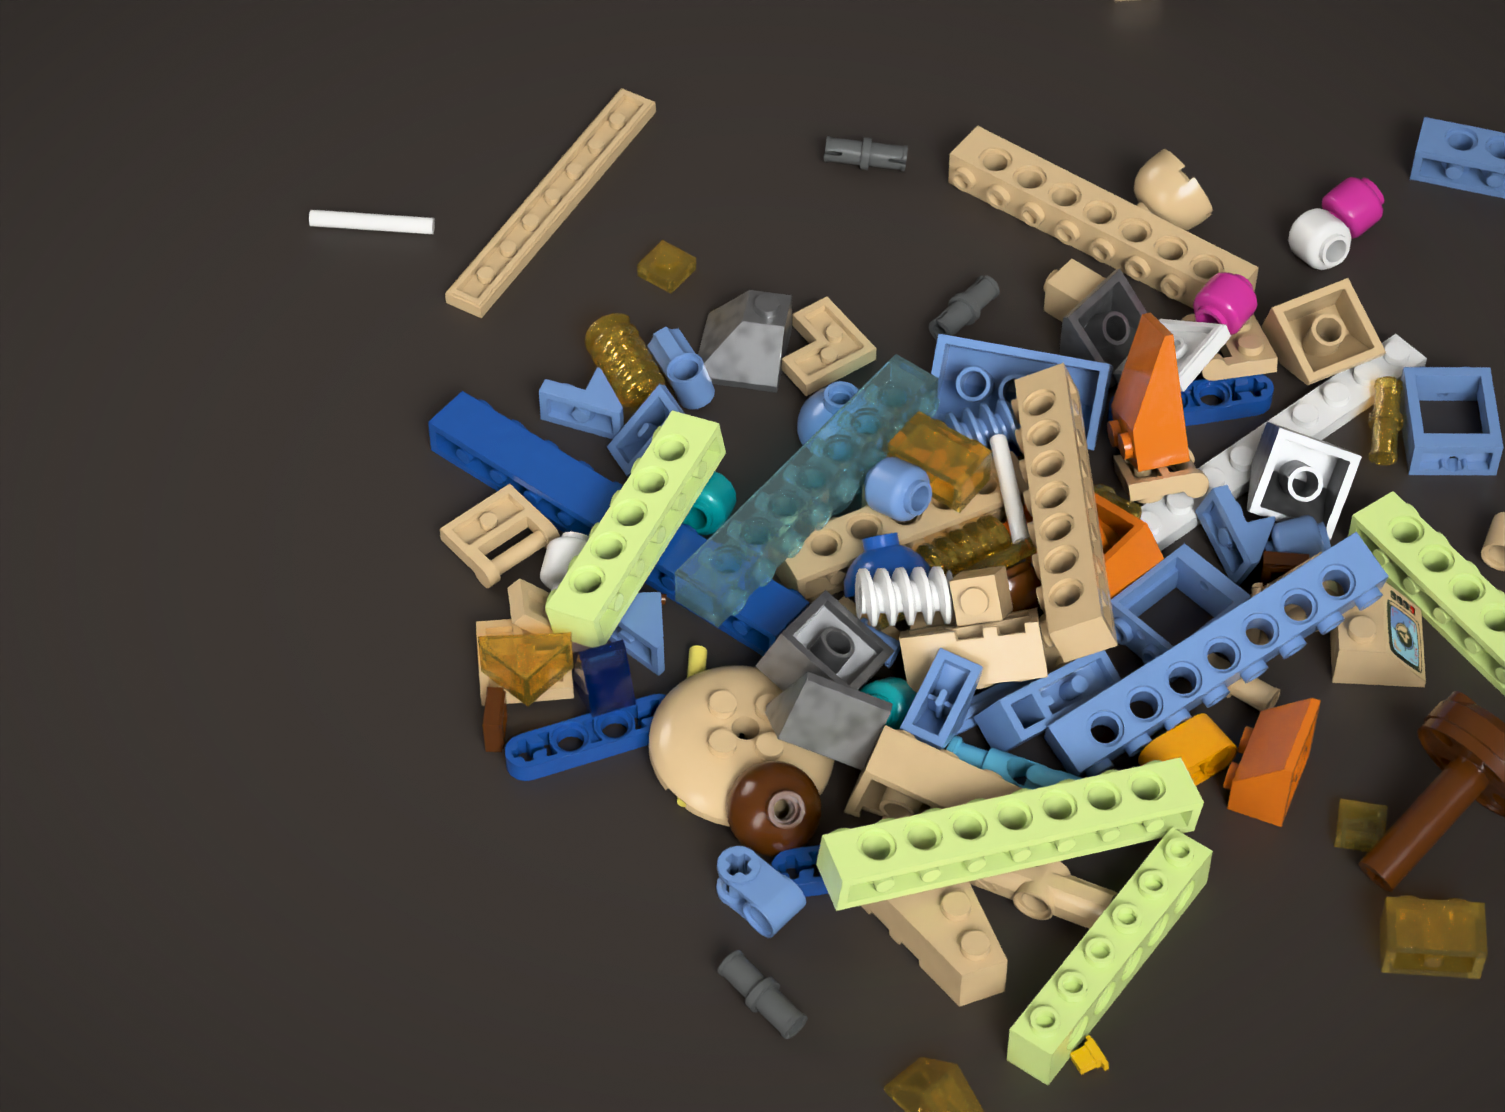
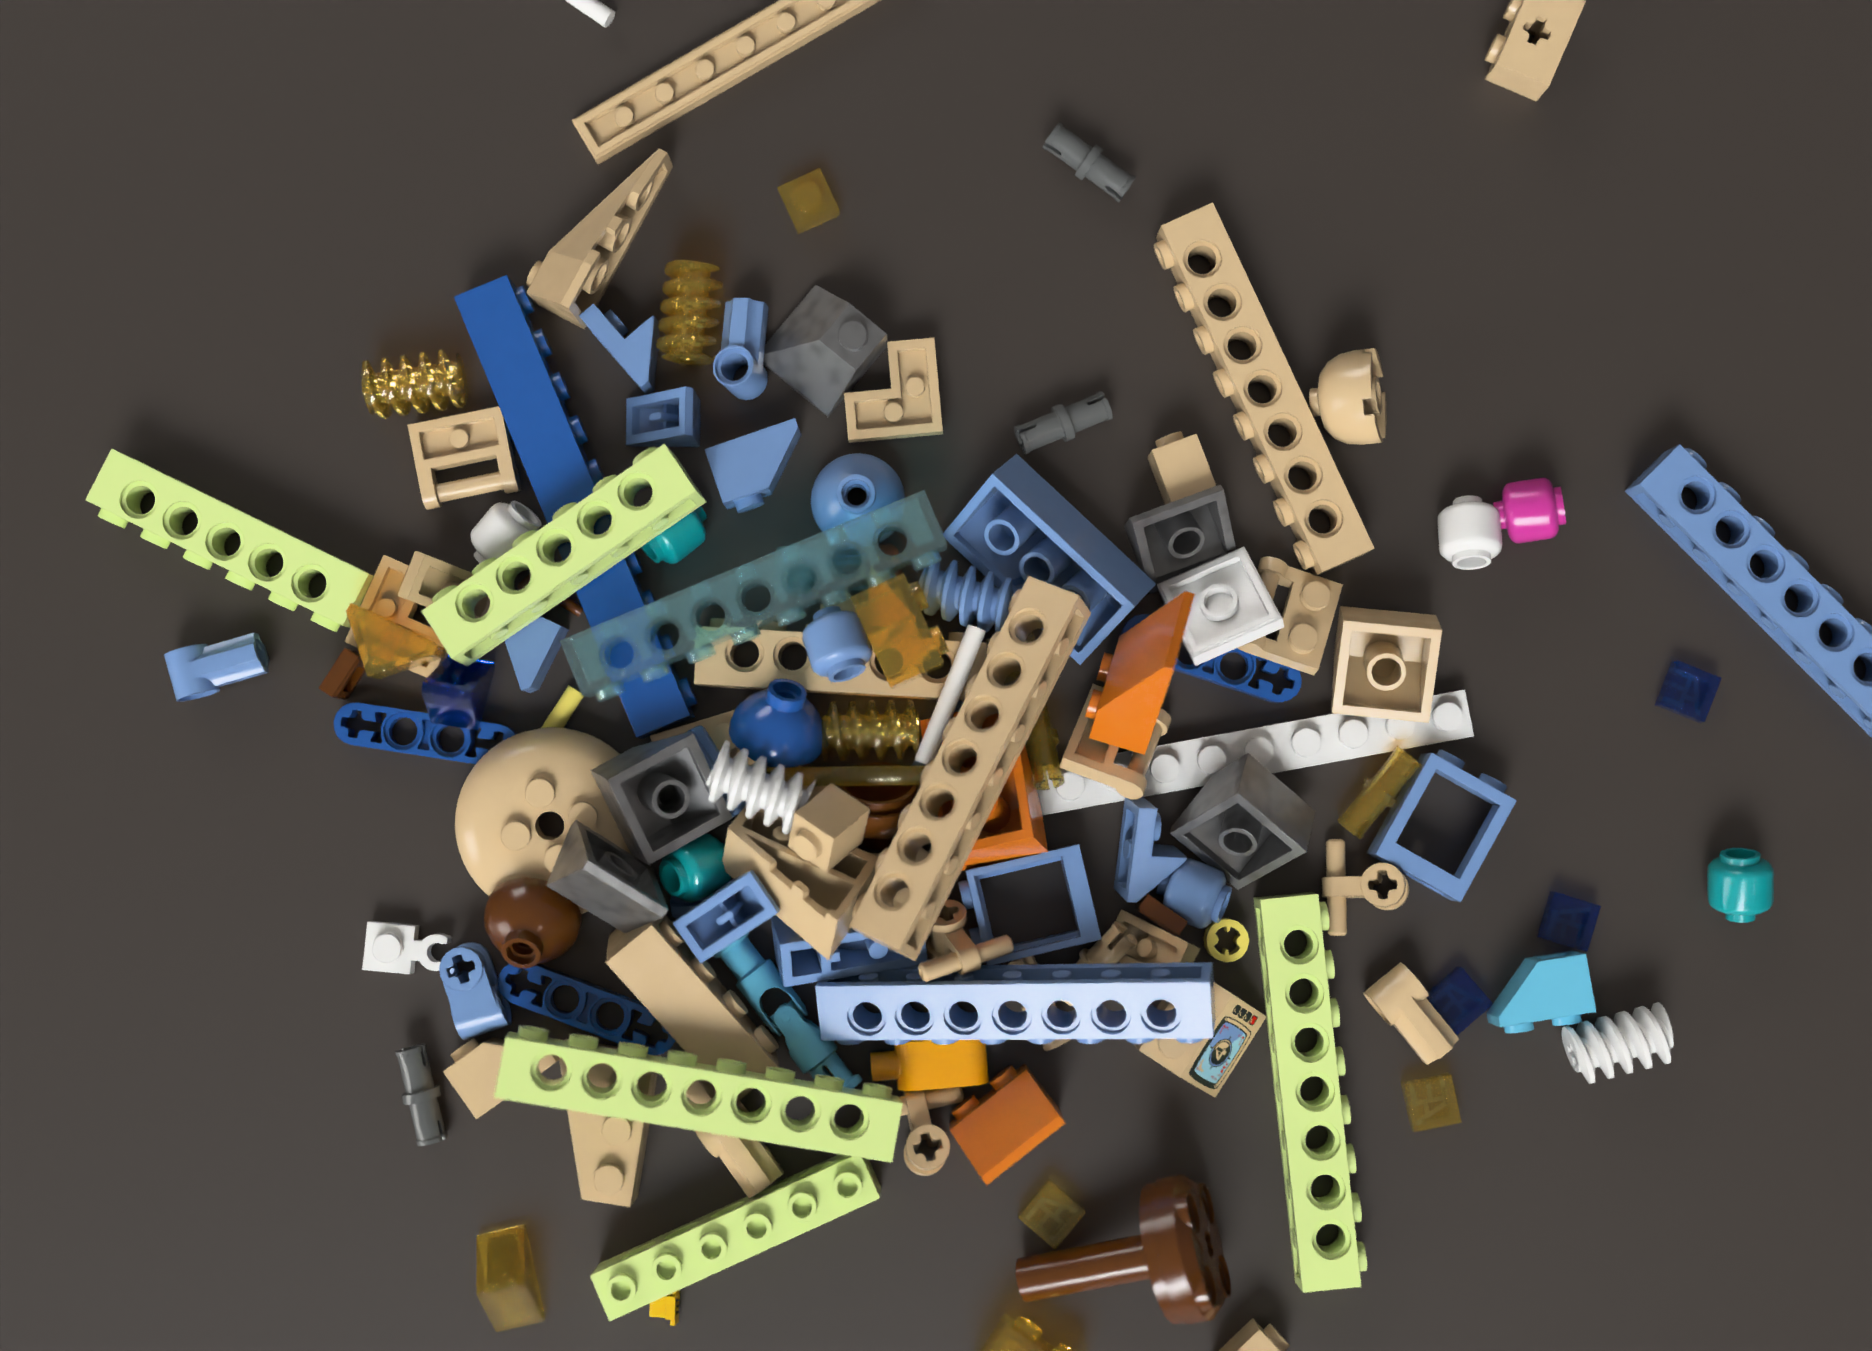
camera: 30 degrees right, 35 degrees up
(337, 671) = (126, 481): none -> yellowish green brick
(367, 775) = (202, 669): none -> medium blue piece
(423, 498) = (414, 385): none -> clear yellow piece
(516, 358) = (589, 255): none -> tan wedge
(667, 903) = (397, 948): none -> white plate
(743, 433) = (752, 464): none -> medium blue slope
(816, 942) = (477, 1071): none -> tan slope
(1136, 652) = (953, 950): none -> tan piece
(1221, 812) = (916, 1107): none -> tan piece
(1226, 300) = (1303, 586): dark pink head -> none
(1426, 482) = (1338, 886): none -> tan piece

